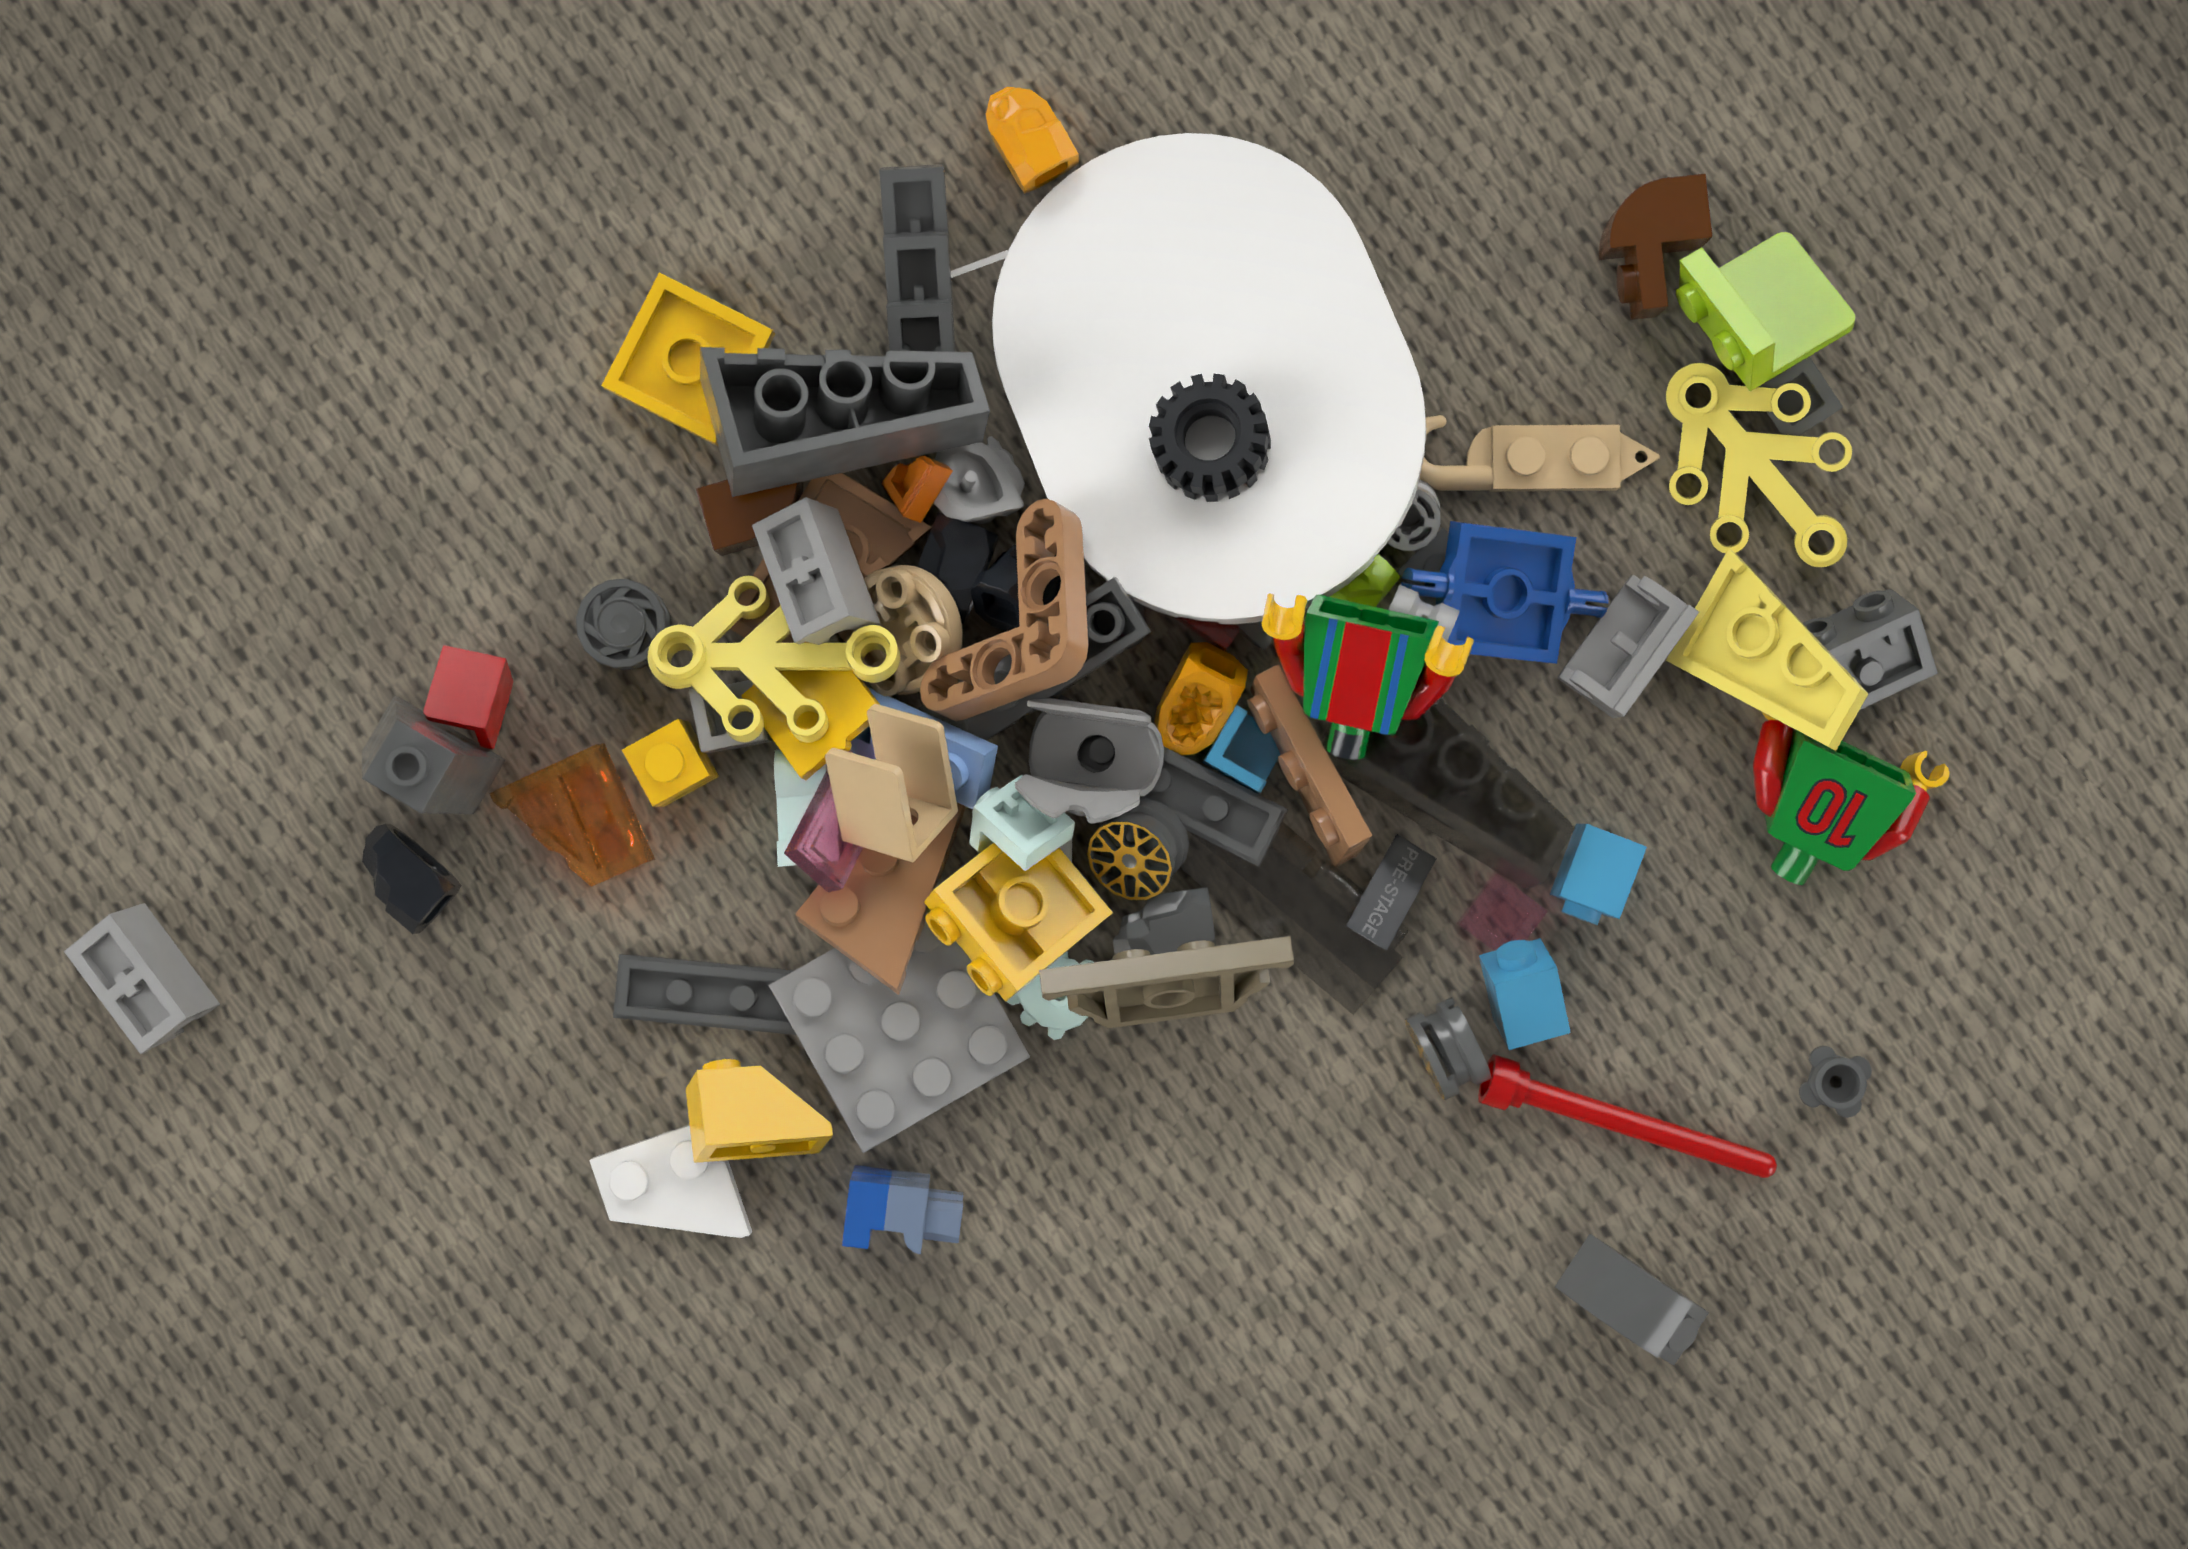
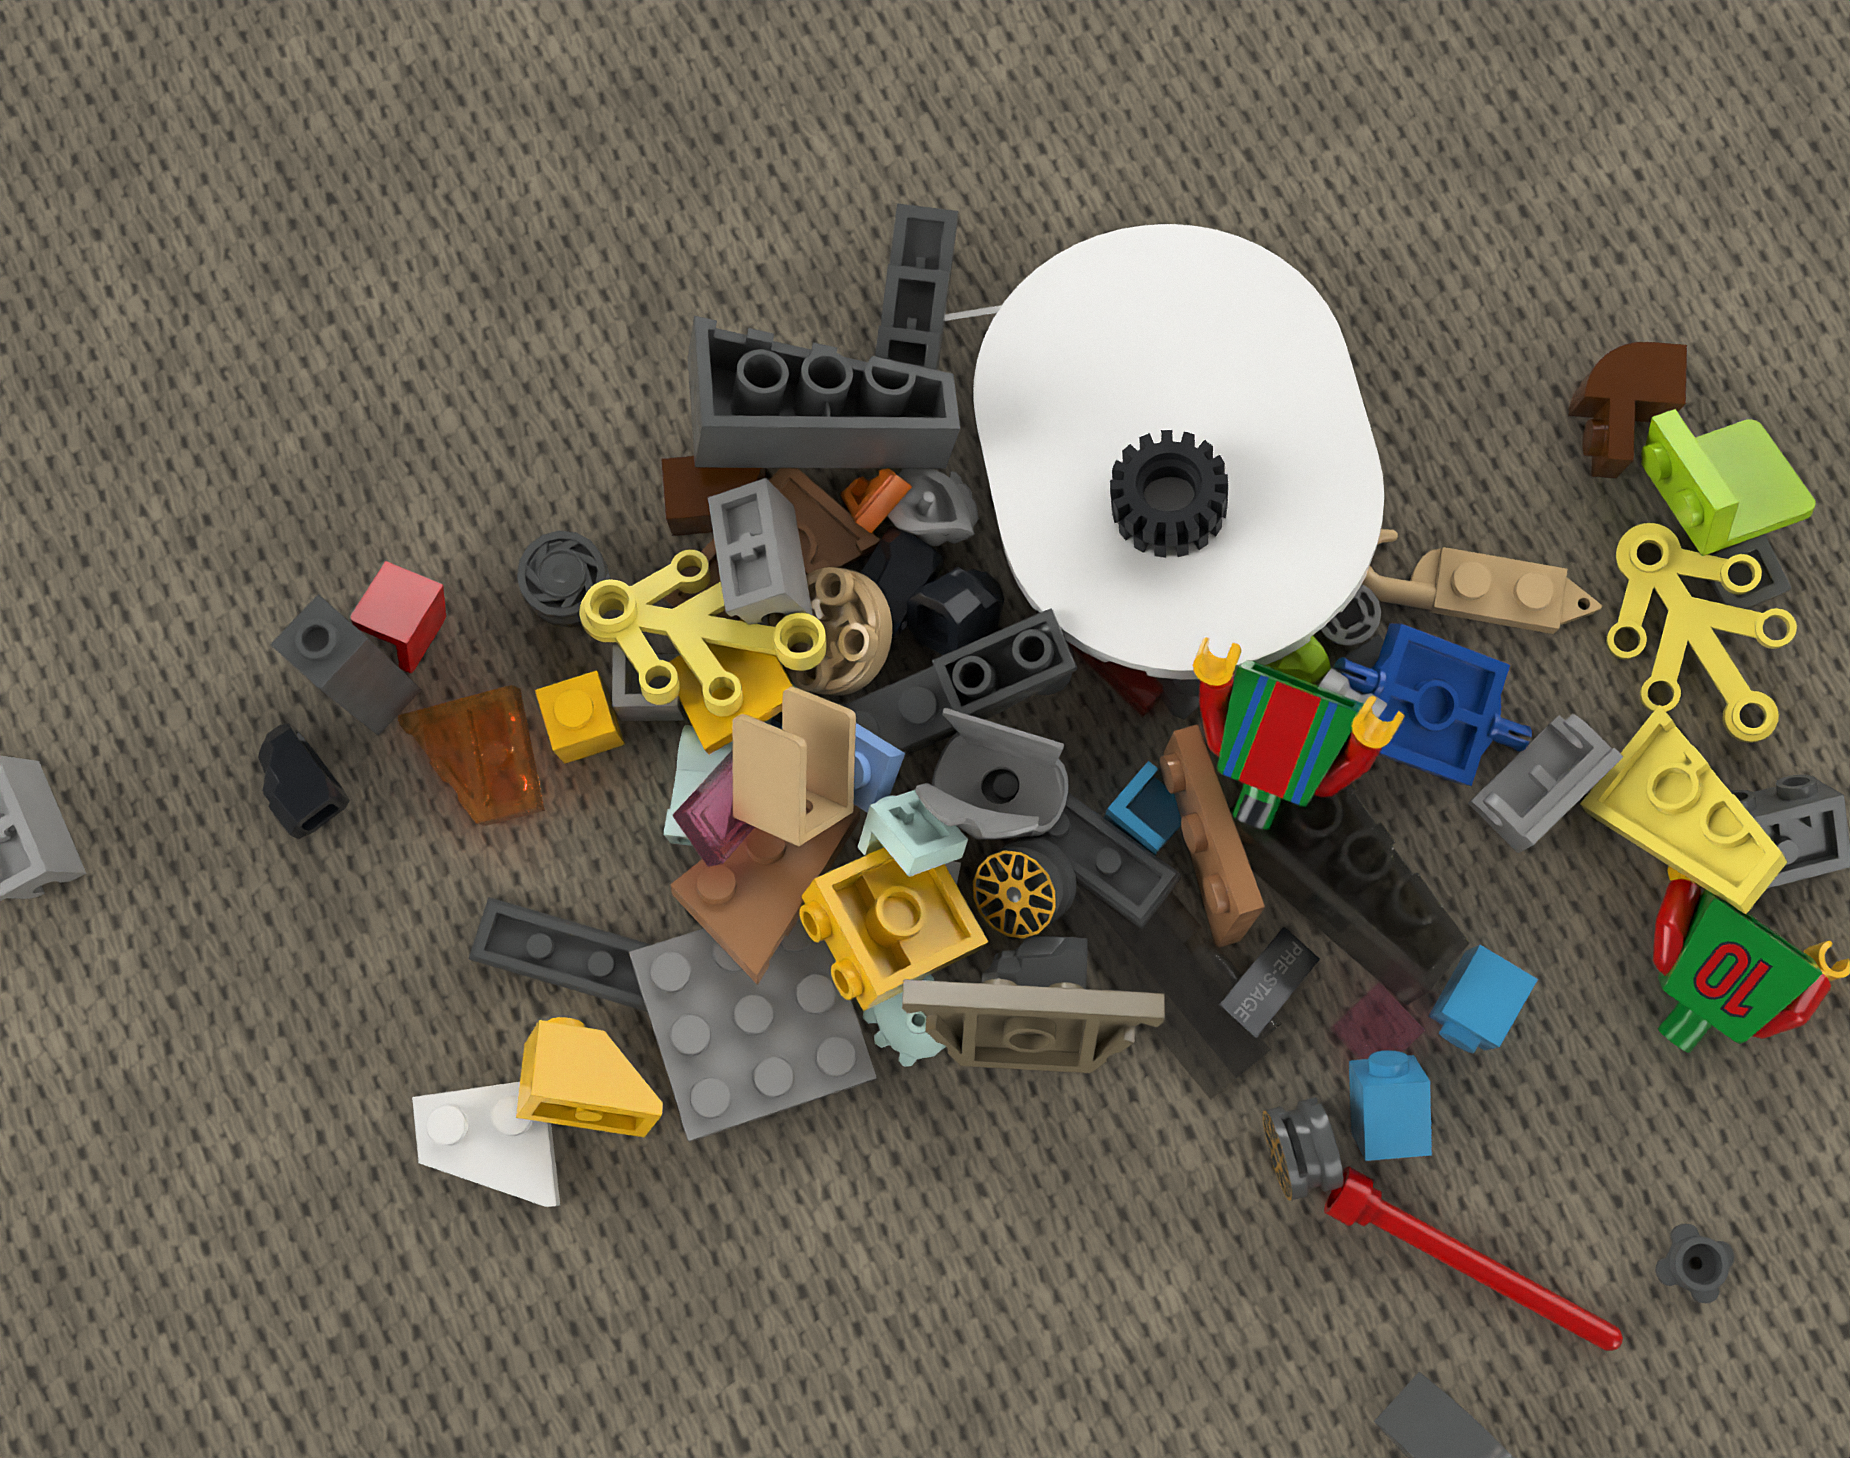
camera: 15 degrees right, 10 degrees down
(662, 353) = (654, 336): yellow plate -> none
(901, 1204) = (714, 1198): sand blue hips -> none
(1029, 137) = (1044, 206): light orange rock -> none
(1033, 640) = (990, 567): medium nougat beam -> none
(1199, 698) = (1111, 752): light orange rock -> none

